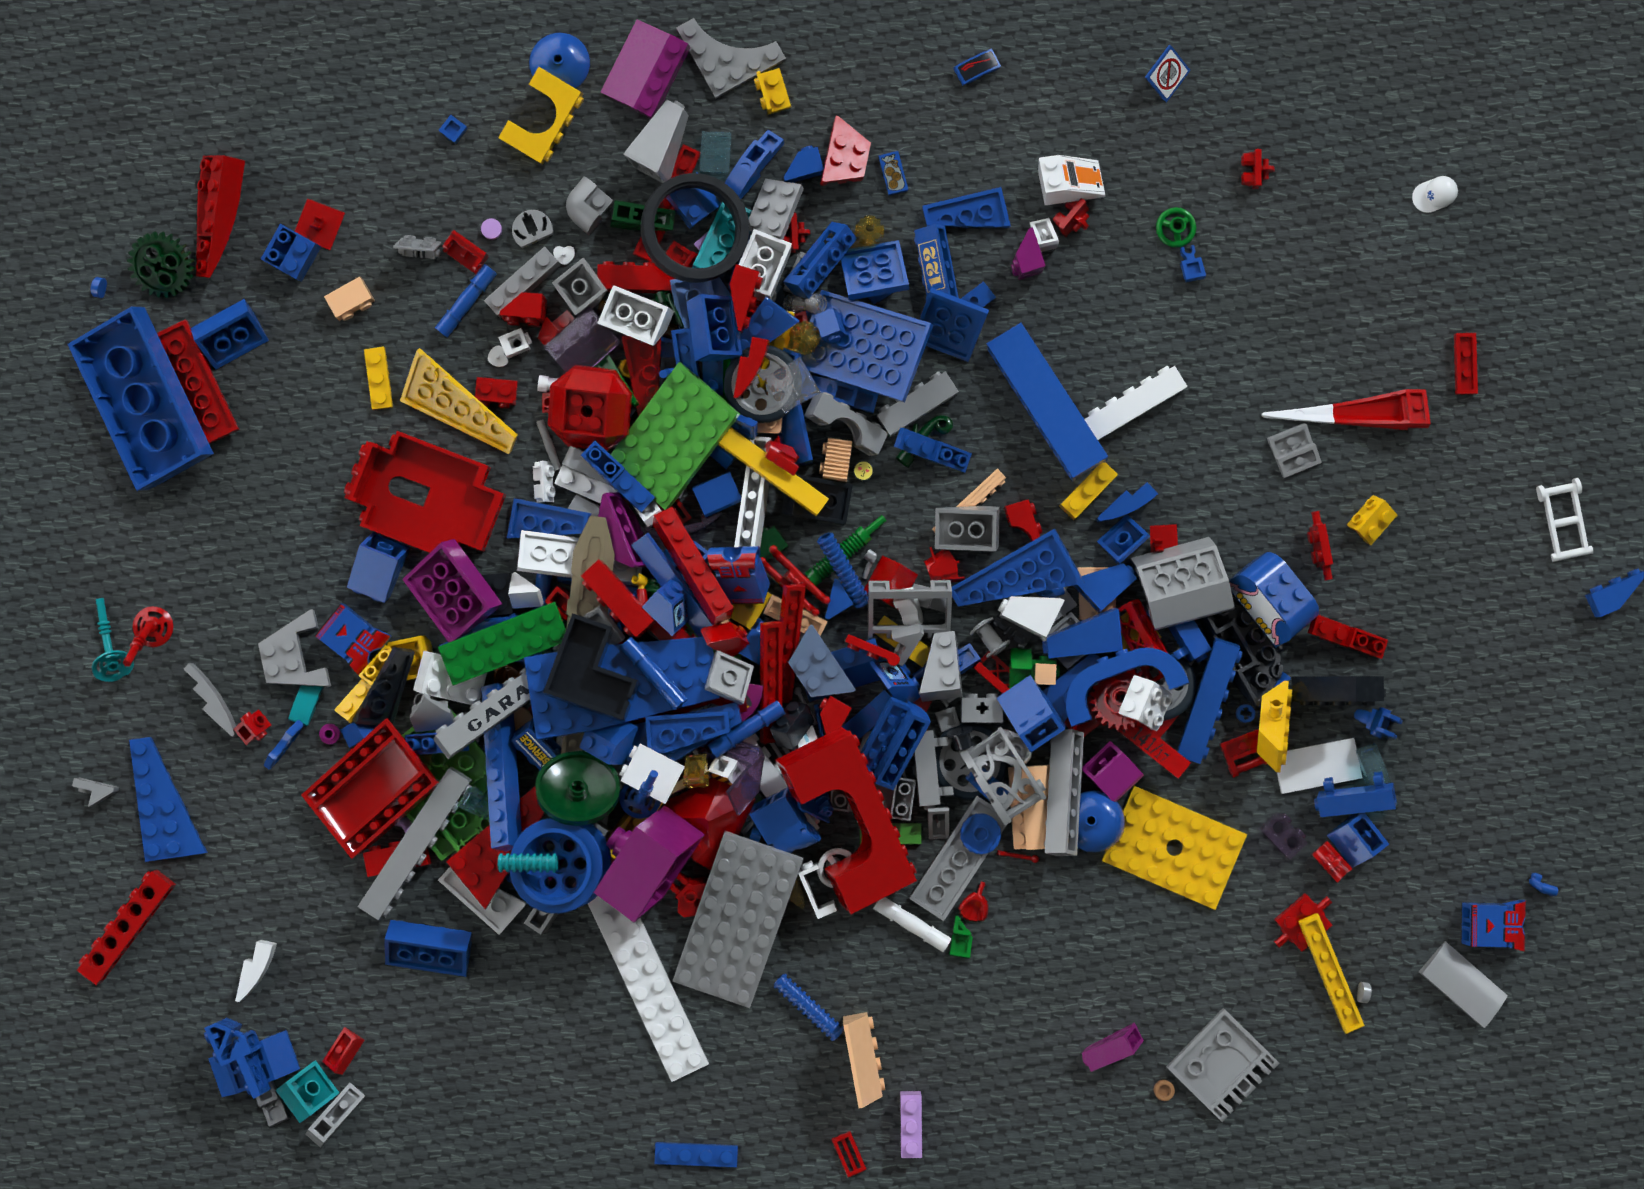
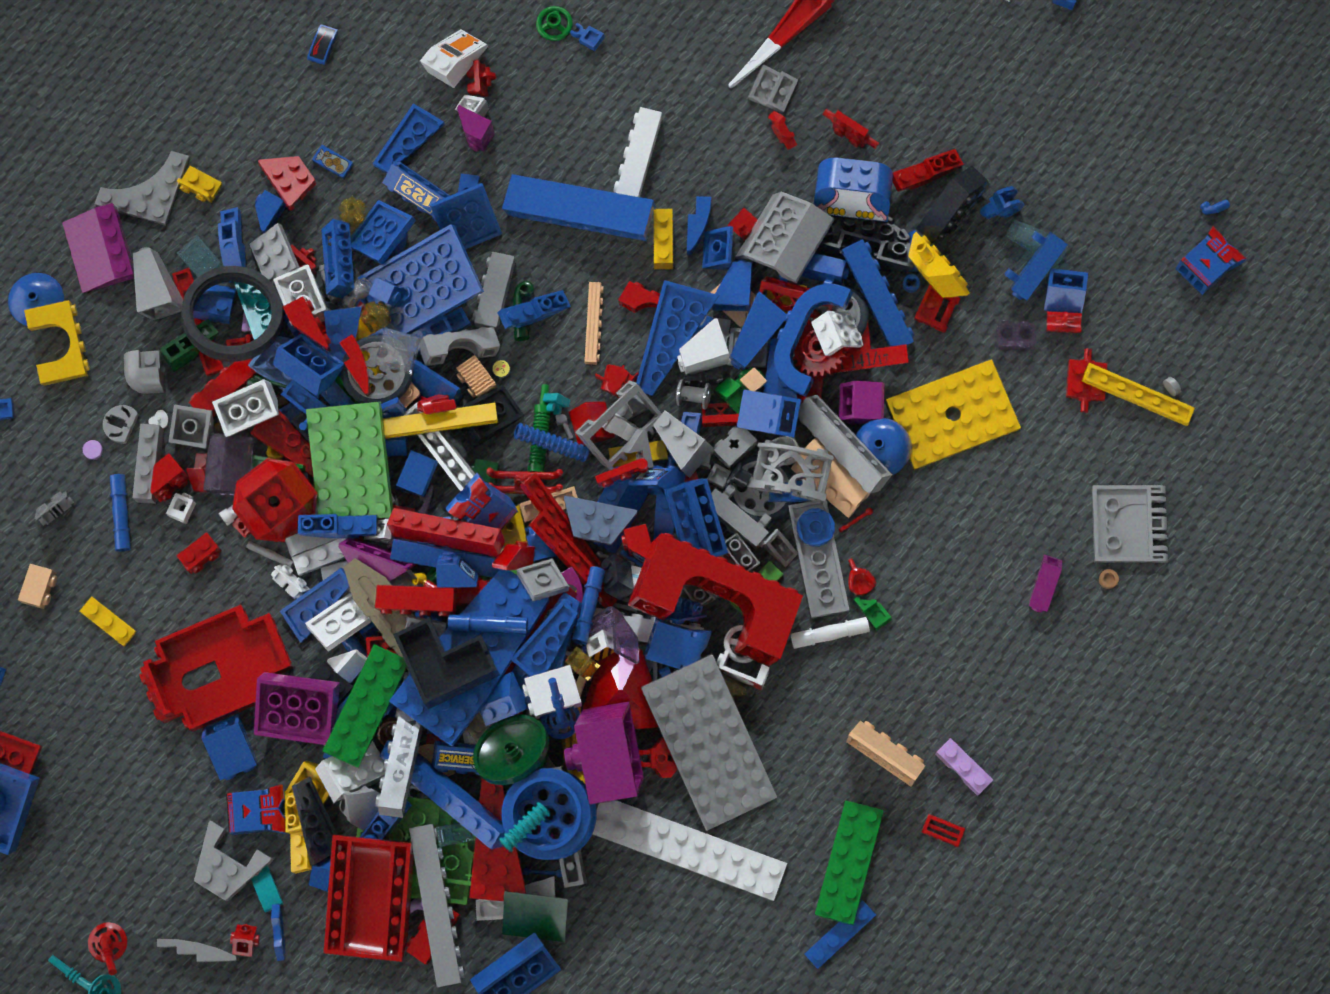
camera: 40 degrees left, 10 degrees down
(335, 737) = (310, 894): magenta plate -> none
(445, 399) = (167, 589): yellow wing -> none
(465, 252) = (88, 480): red hinge -> none
(482, 920) = (534, 913): none -> dark green sticker
(497, 357) = (178, 530): white piece -> none
(754, 1110) = (849, 862): none -> green plate
(808, 1007) = (816, 757): blue piece -> none
(839, 600) = (569, 466): blue slope -> none
(877, 540) = (555, 402): none -> teal tile
(967, 528) = (607, 338): light grey slope -> none
(1266, 492) = (781, 130): none -> red piece
(1311, 764) = (987, 275): white tile -> none
(1372, 519) = (867, 83): yellow bracket -> none
(1463, 984) = (1230, 319): light grey slope -> none

